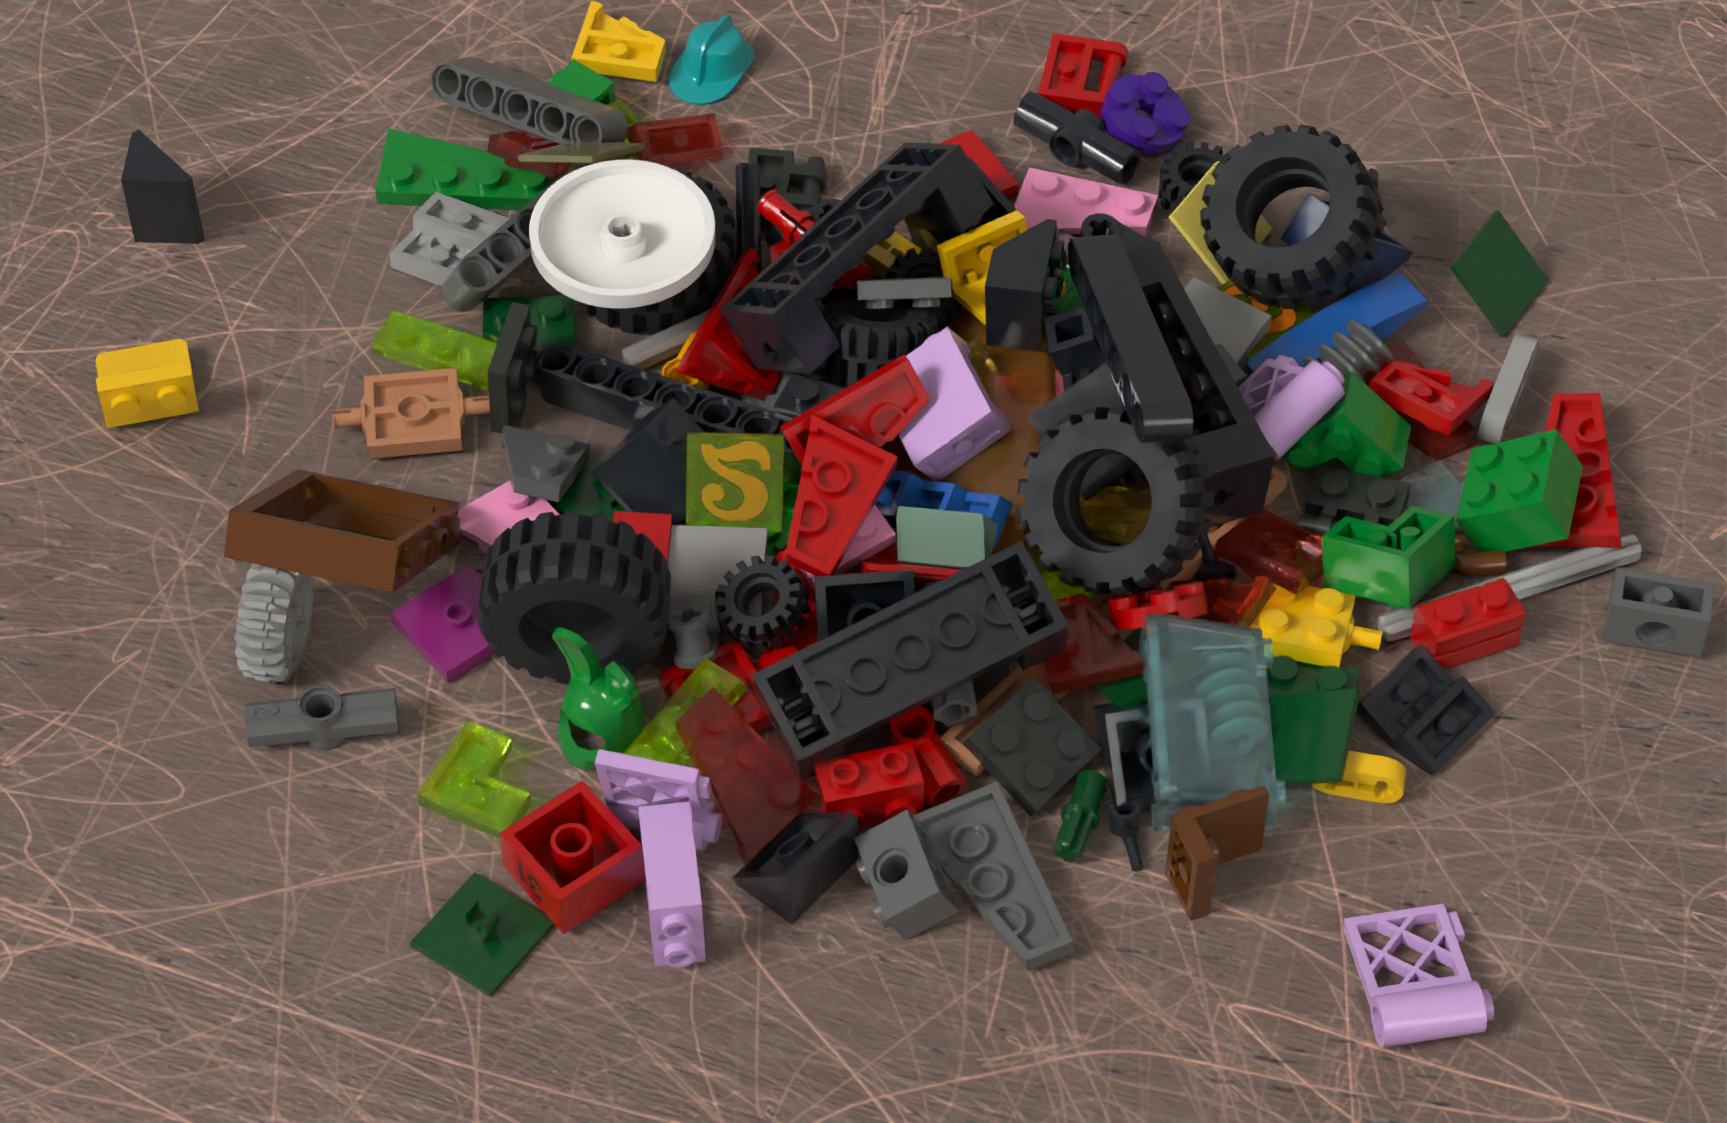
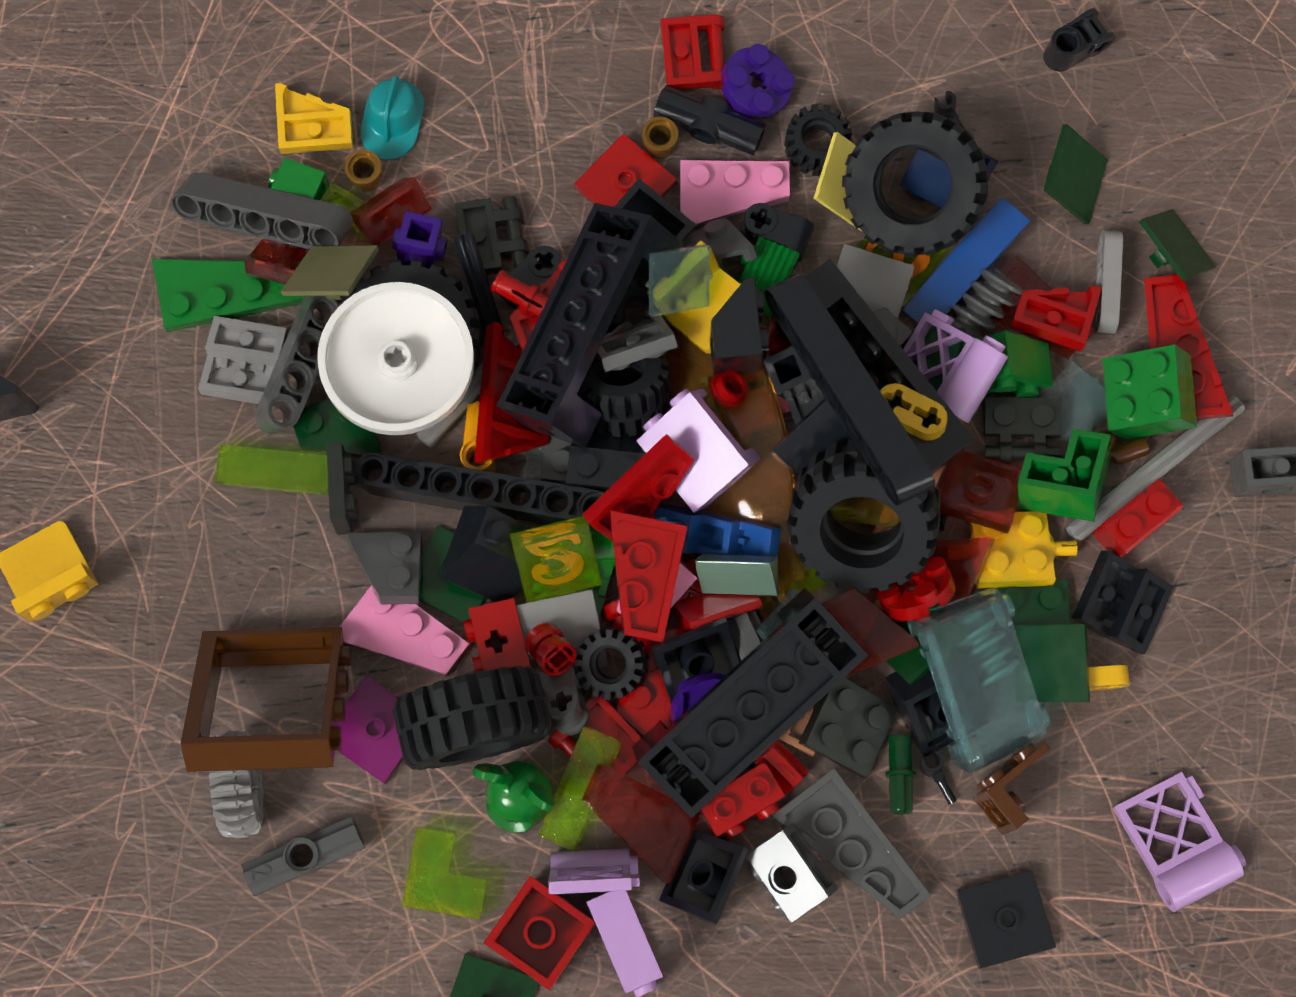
camera: 20 degrees left, 25 degrees up
(412, 413) = (271, 542): nougat plate -> none
(659, 96) = (363, 160): none -> pearl gold piece
(685, 562) = (550, 649): none -> red wheel
(701, 157) = (419, 239): none -> dark purple brick
(971, 230) = (679, 280): none -> clear light blue piece
(998, 351) = (728, 388): none -> red plate
(1011, 139) = (659, 127): none -> pearl gold piece
(1162, 1004) = (1005, 919): none -> black plate
(1213, 400) = (916, 404): none -> yellow beam
(1541, 156) = (1082, 39): none -> black piece
(1601, 367) = (1176, 245): none -> dark green piece

